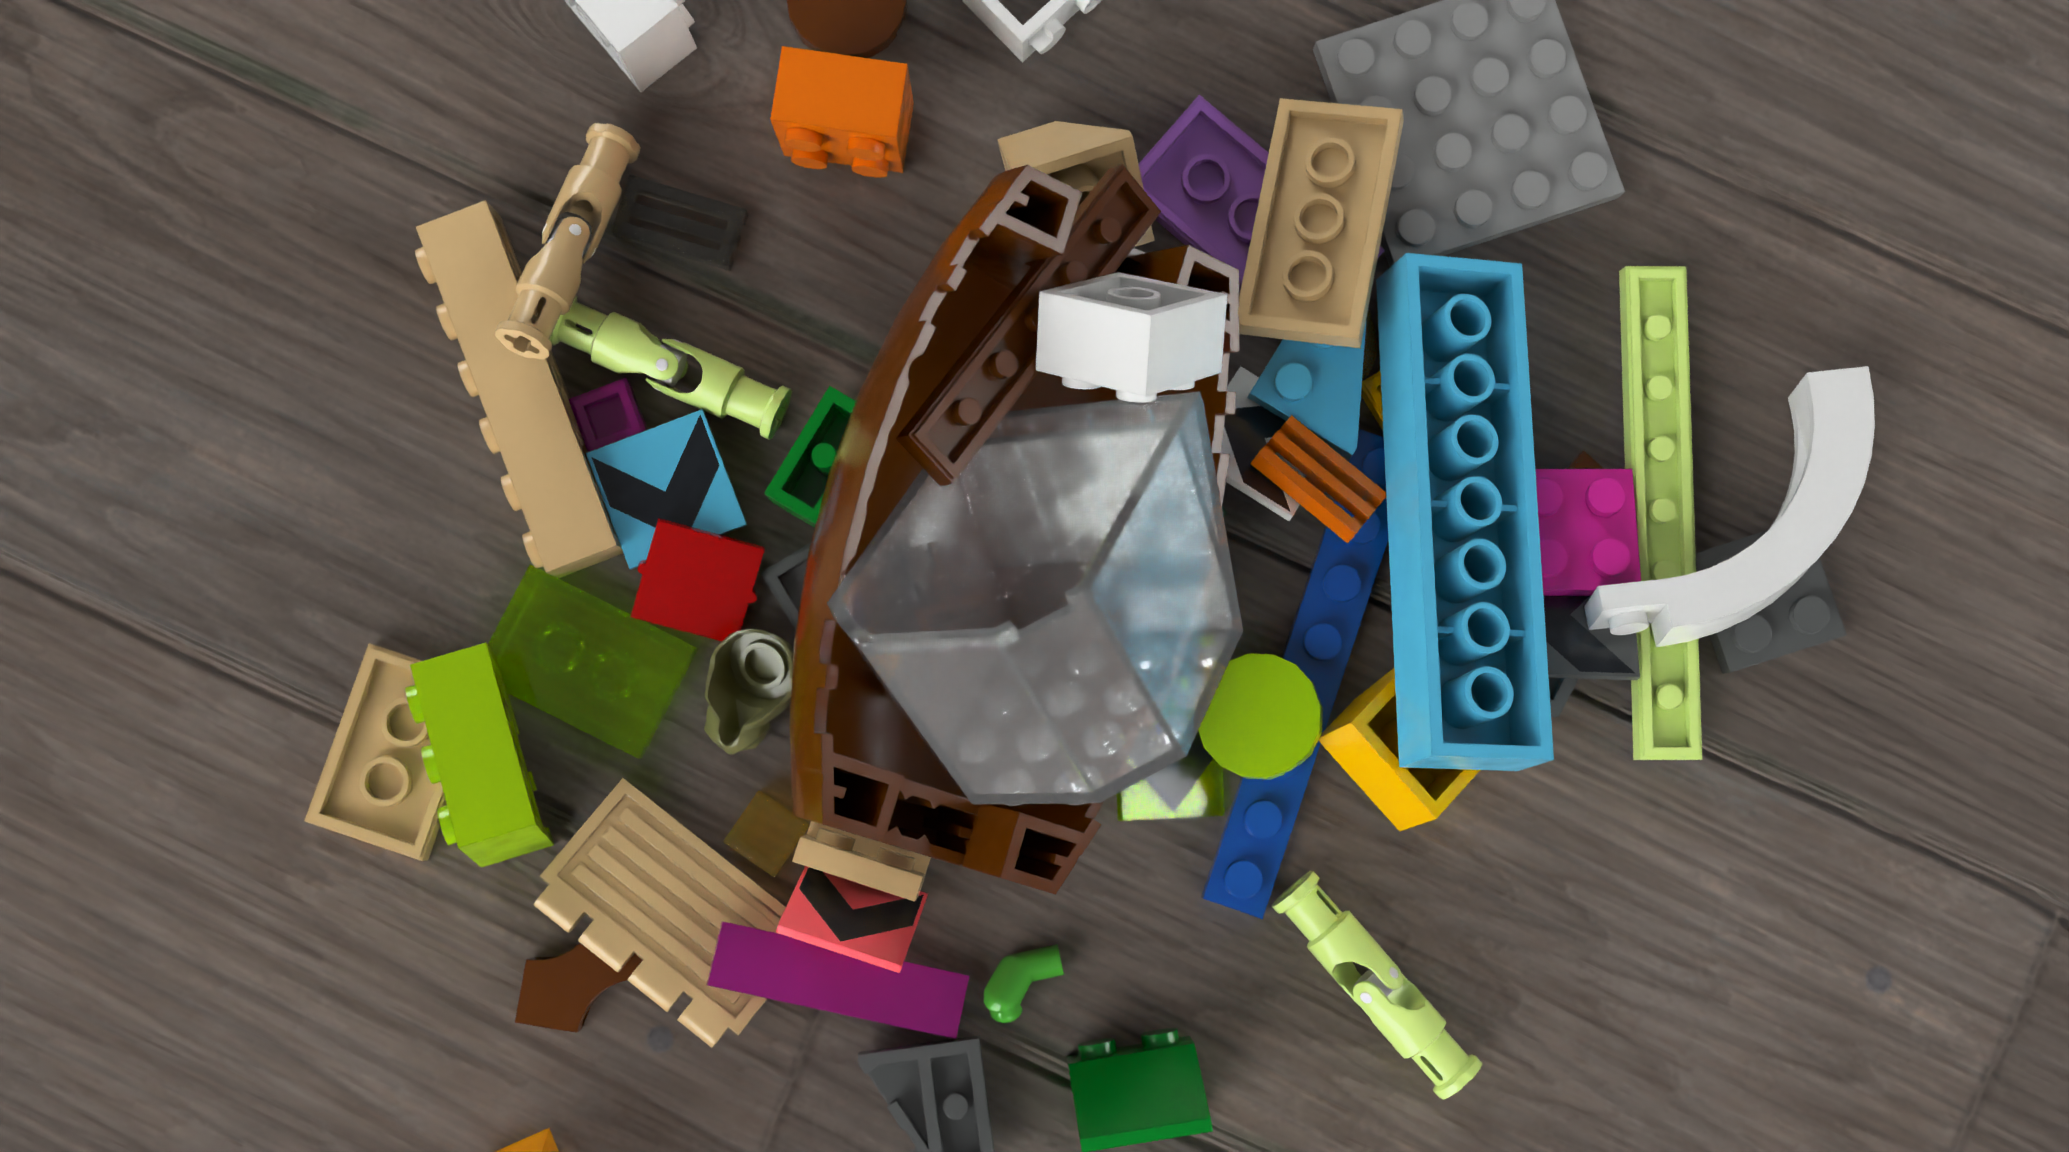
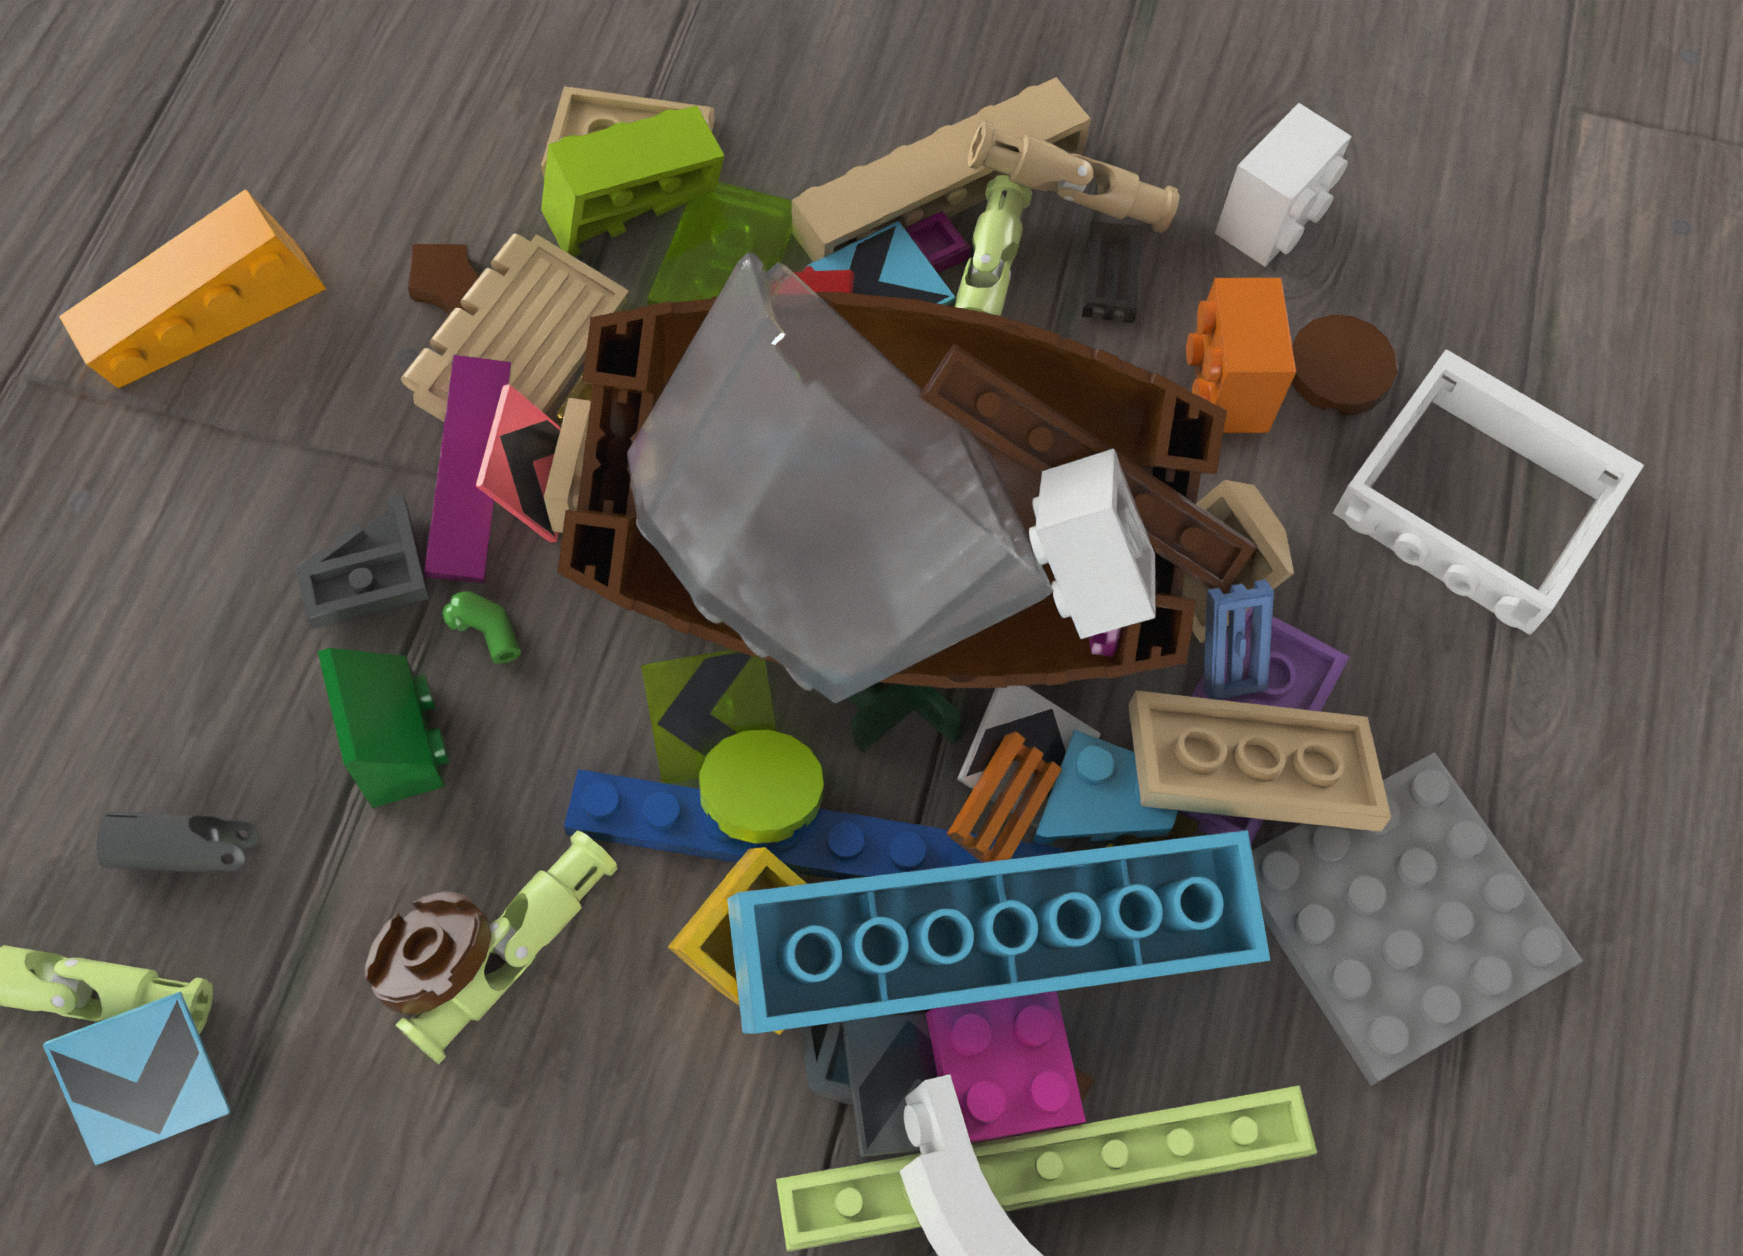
camera: 80 degrees right, 20 degrees down
(1195, 219) = (1215, 640): none -> medium blue tile
(1379, 1062) = (428, 953): none -> reddish brown tile

